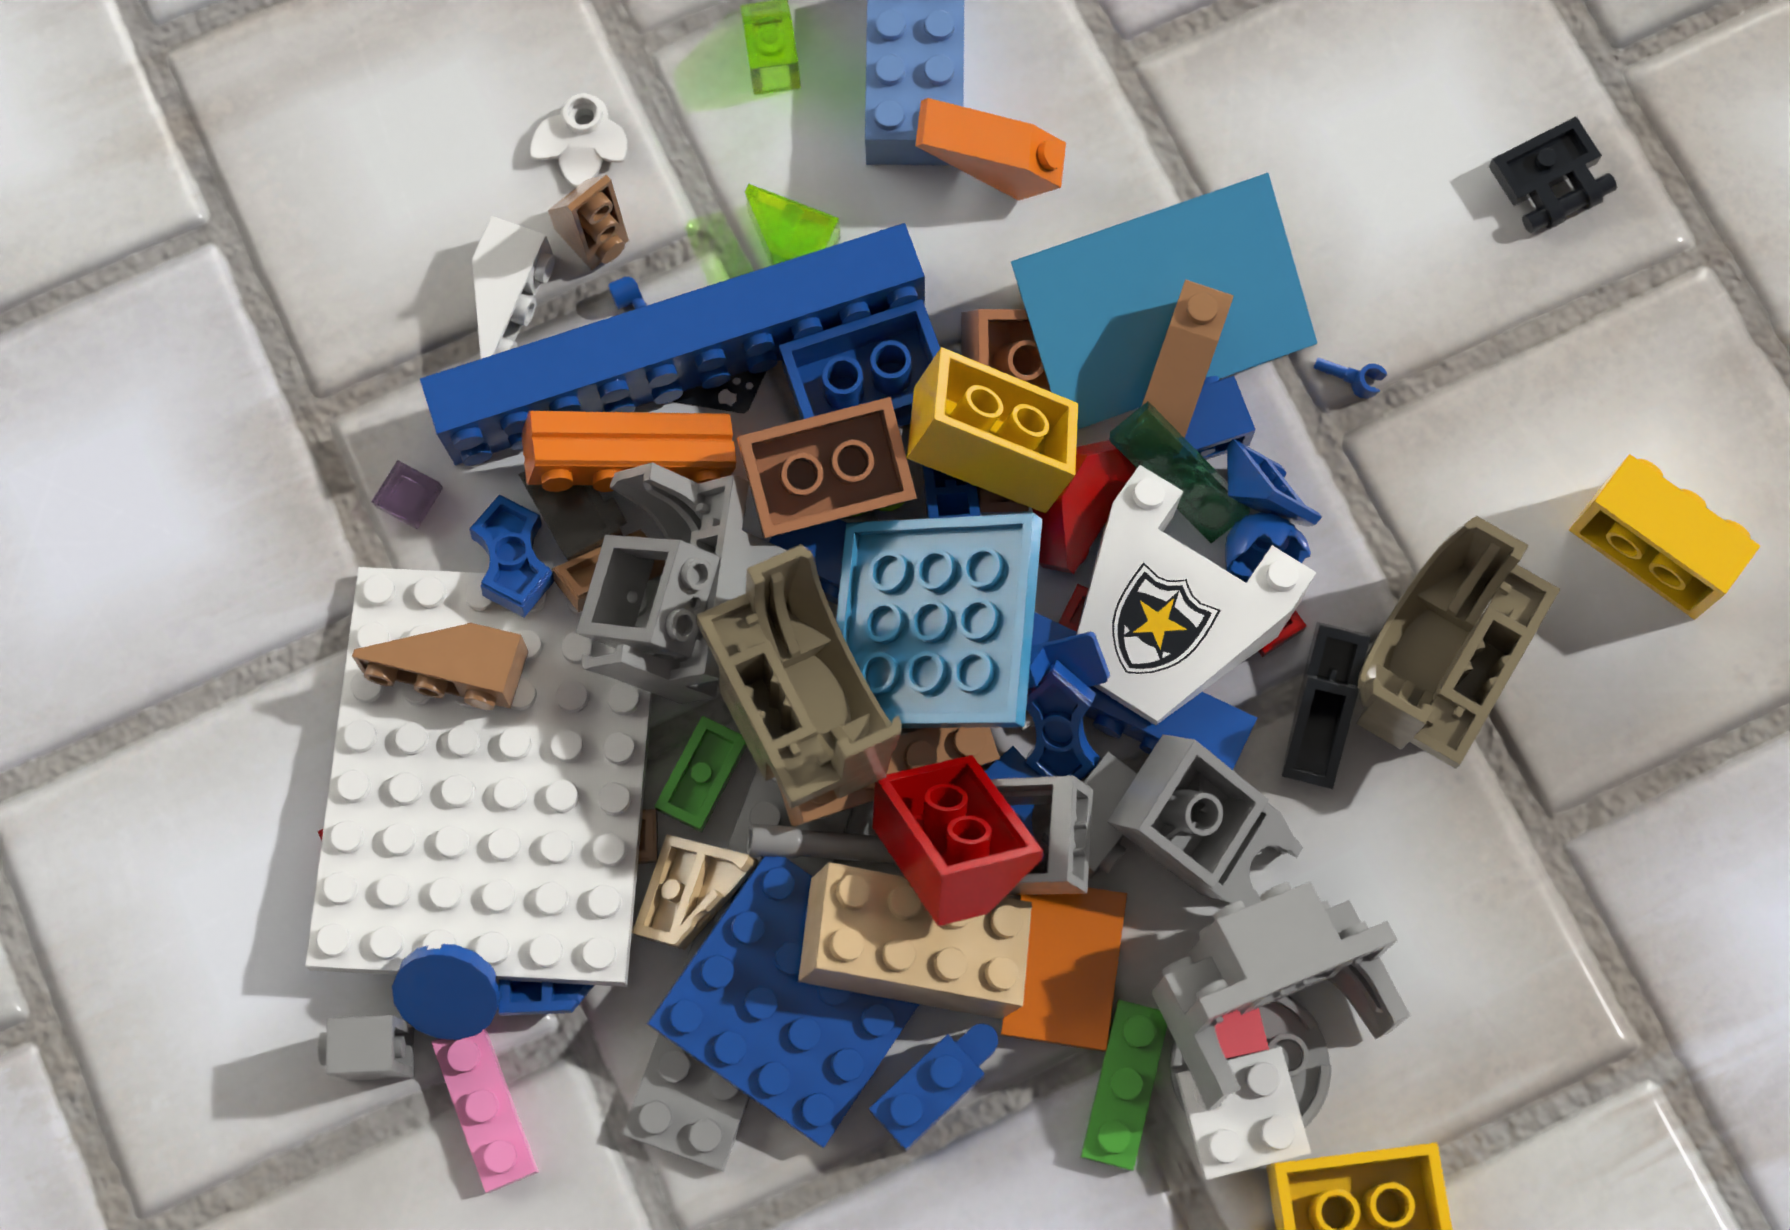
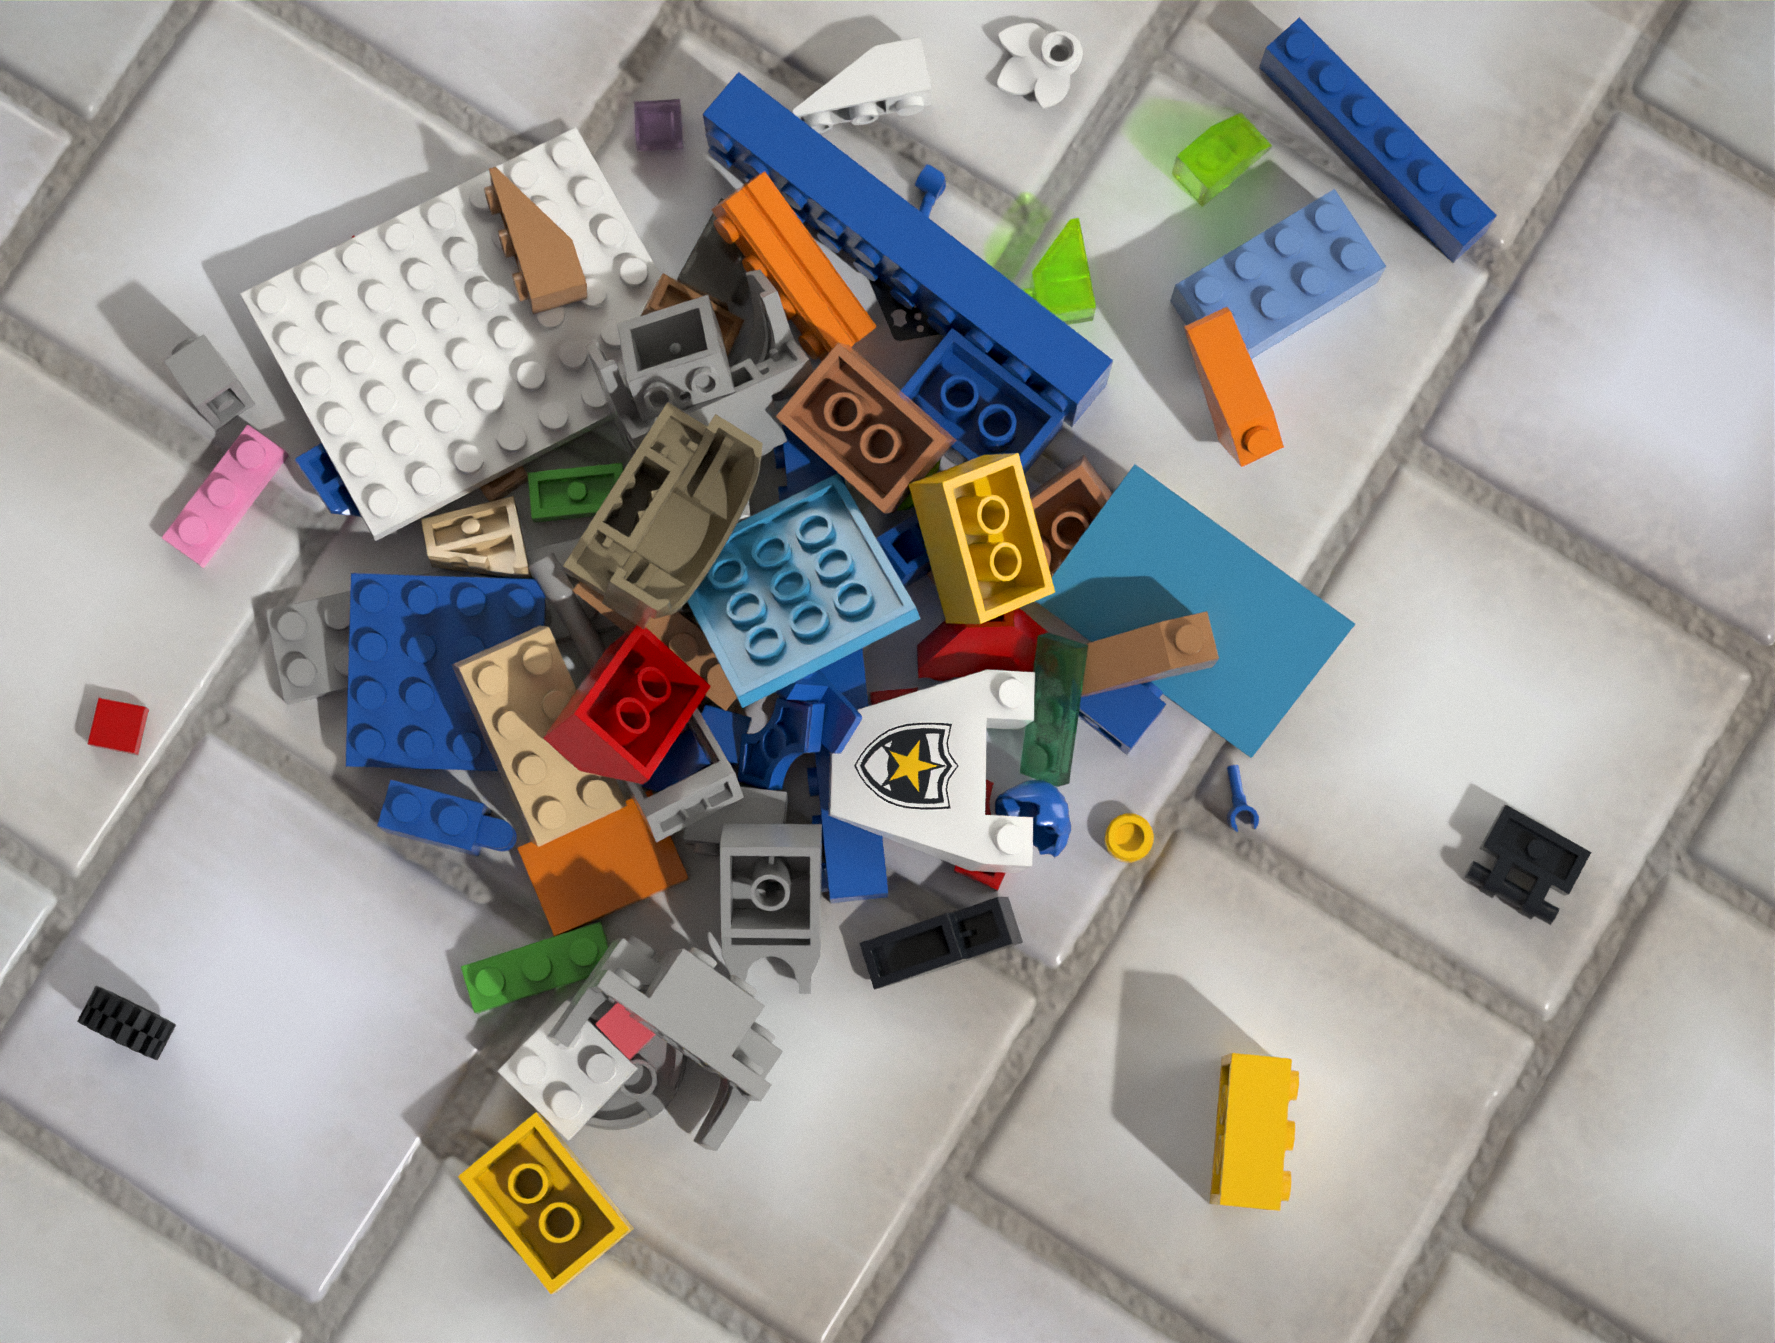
camera: 55 degrees right, 5 degrees up
(446, 992) = (285, 409): blue tile -> none
(514, 573) = (640, 248): blue tile -> none
(591, 221) = (965, 116): medium nougat slope -> none
(1262, 486) = (1090, 784): blue slope -> none
(1326, 487) = (1129, 838): none -> yellow tile
(1440, 657) = (1040, 1011): dark tan piece -> none

